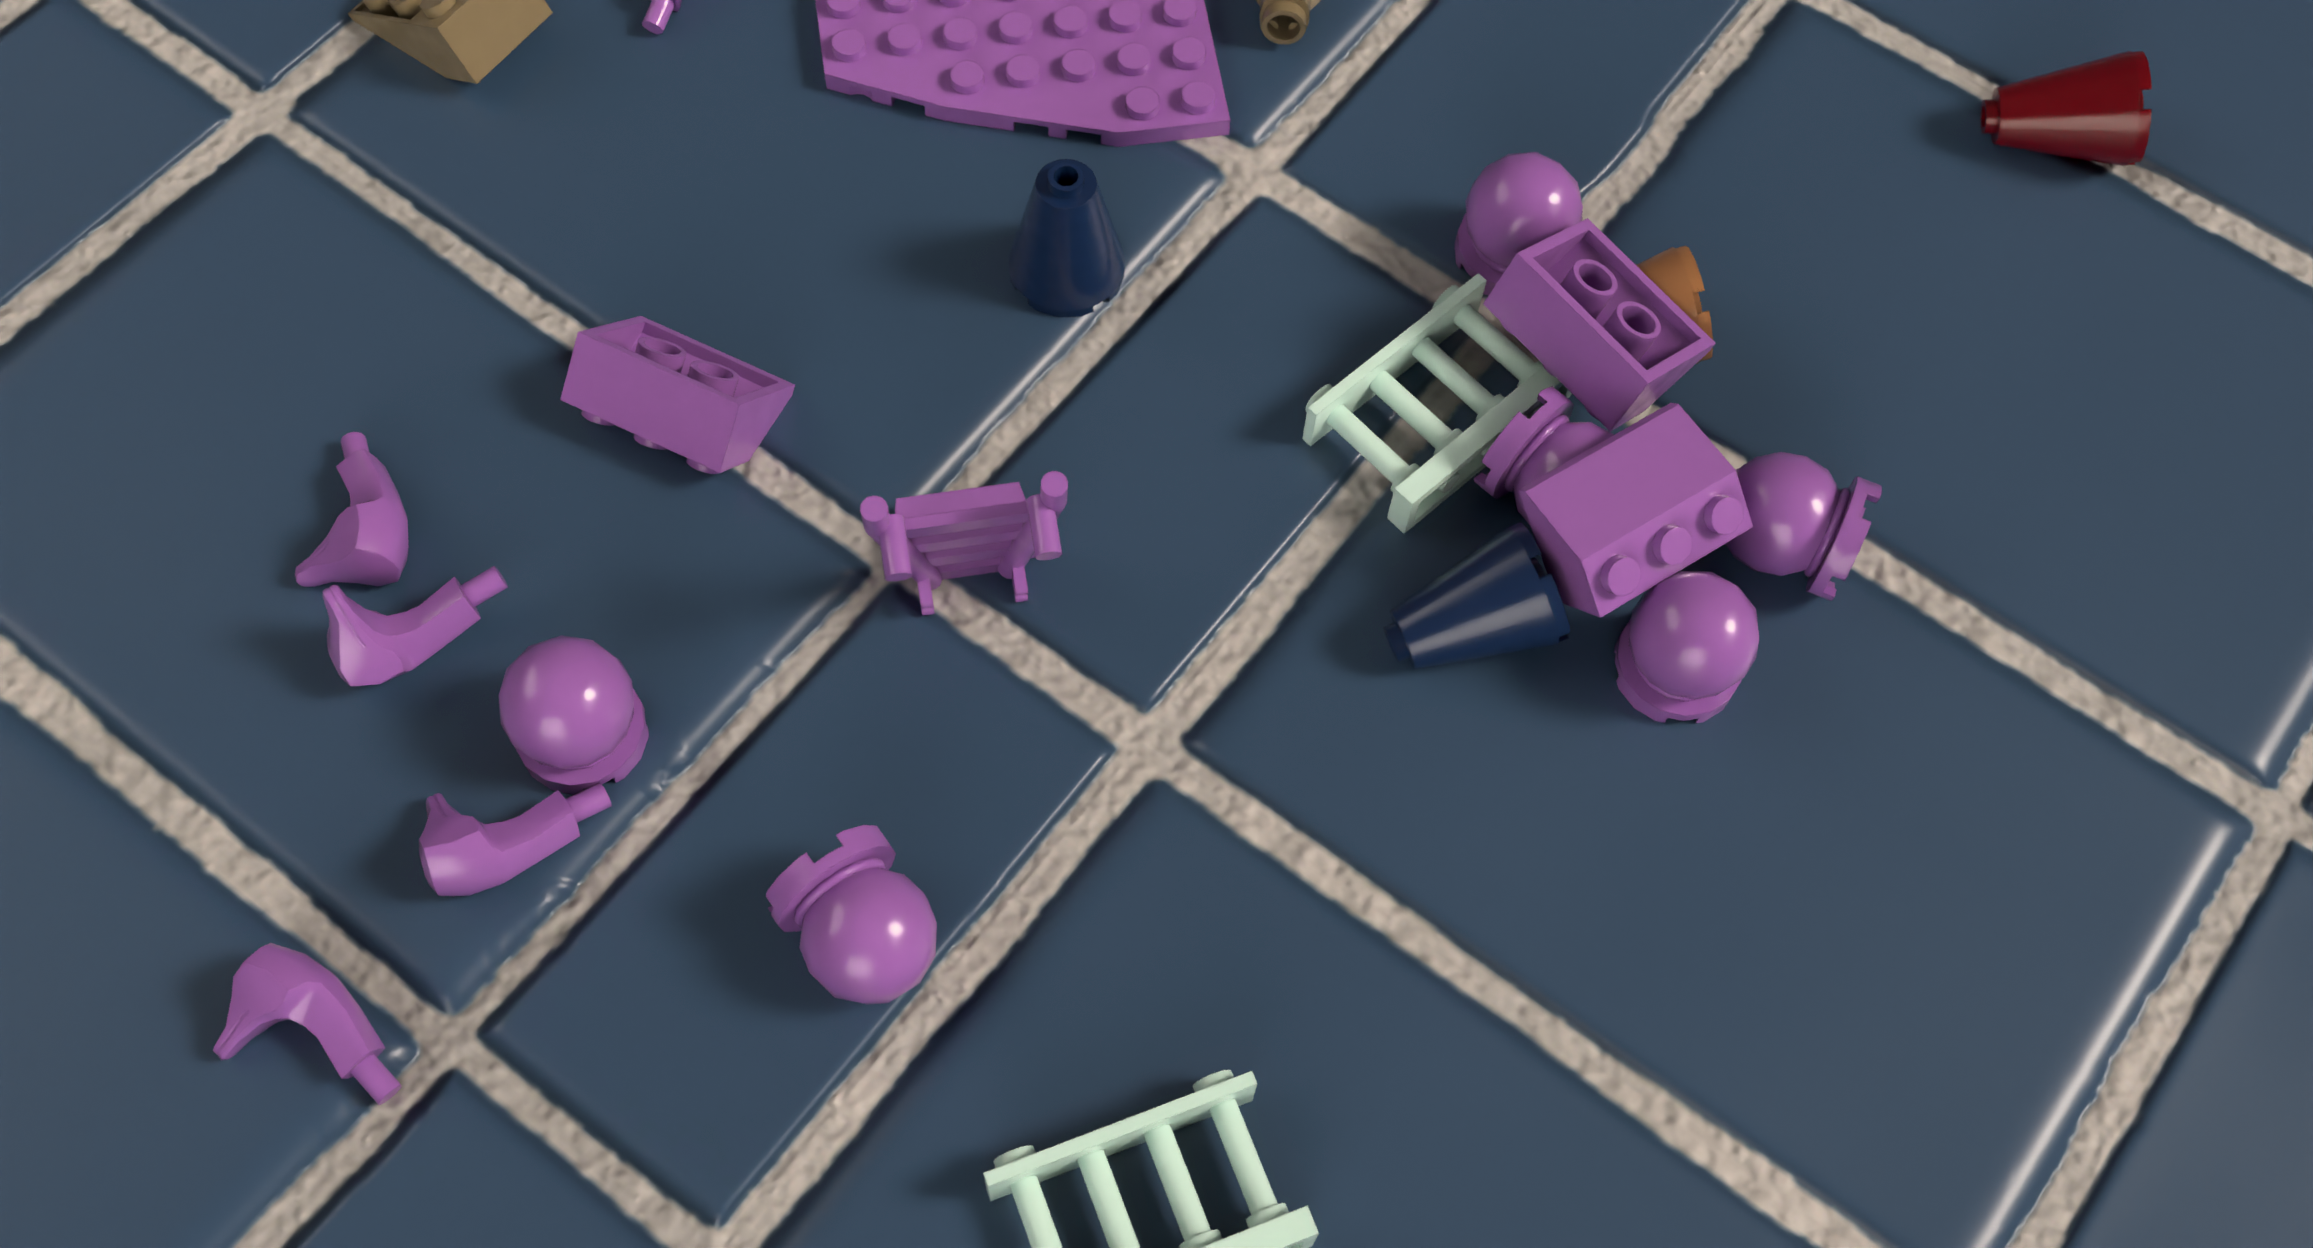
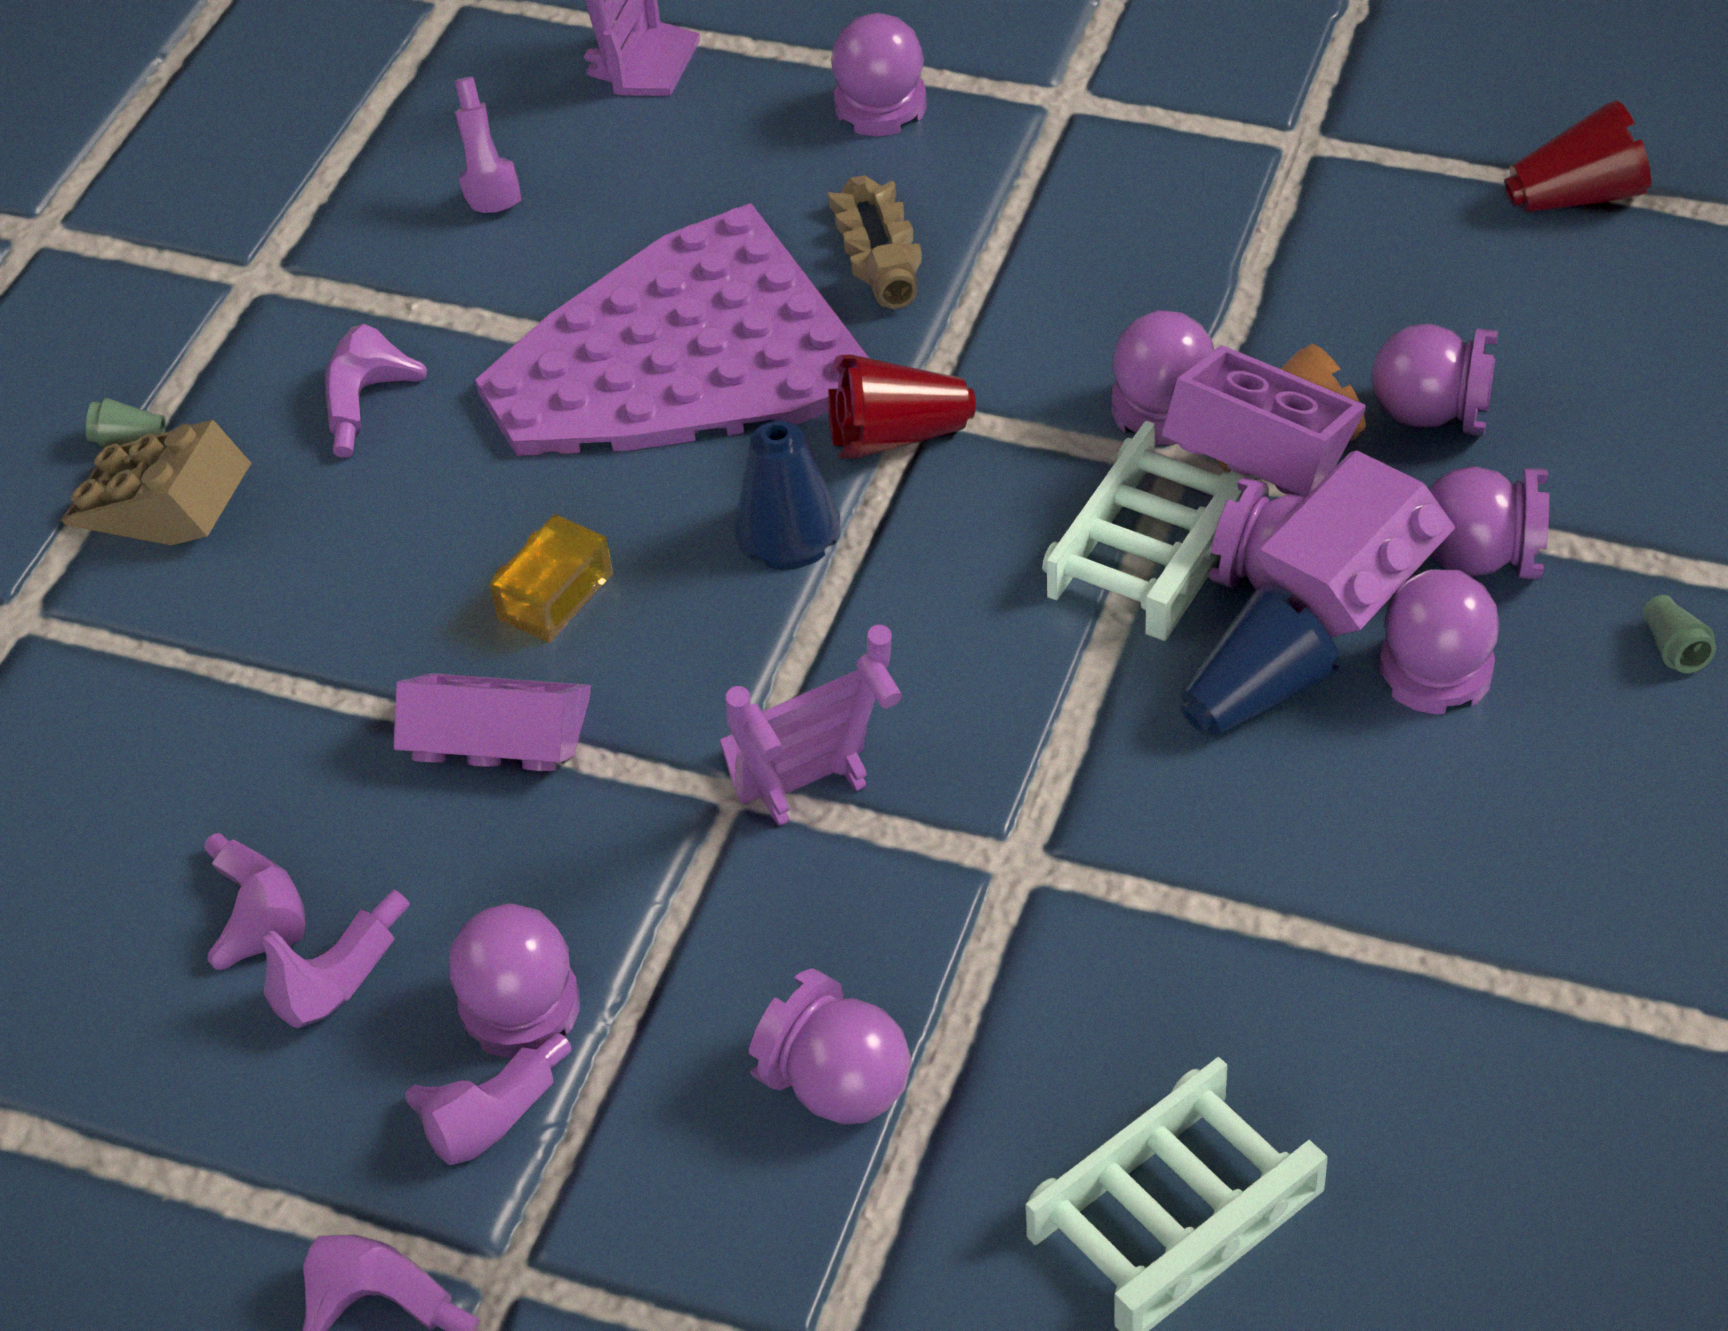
camera: 10 degrees left, 15 degrees down
(798, 249) = (551, 578): none -> clear yellow piece
(1225, 165) = (893, 405): none -> dark red cone
(1808, 321) = (1433, 376): none -> medium lavender tile
(1951, 722) = (1680, 636): none -> sand green cone

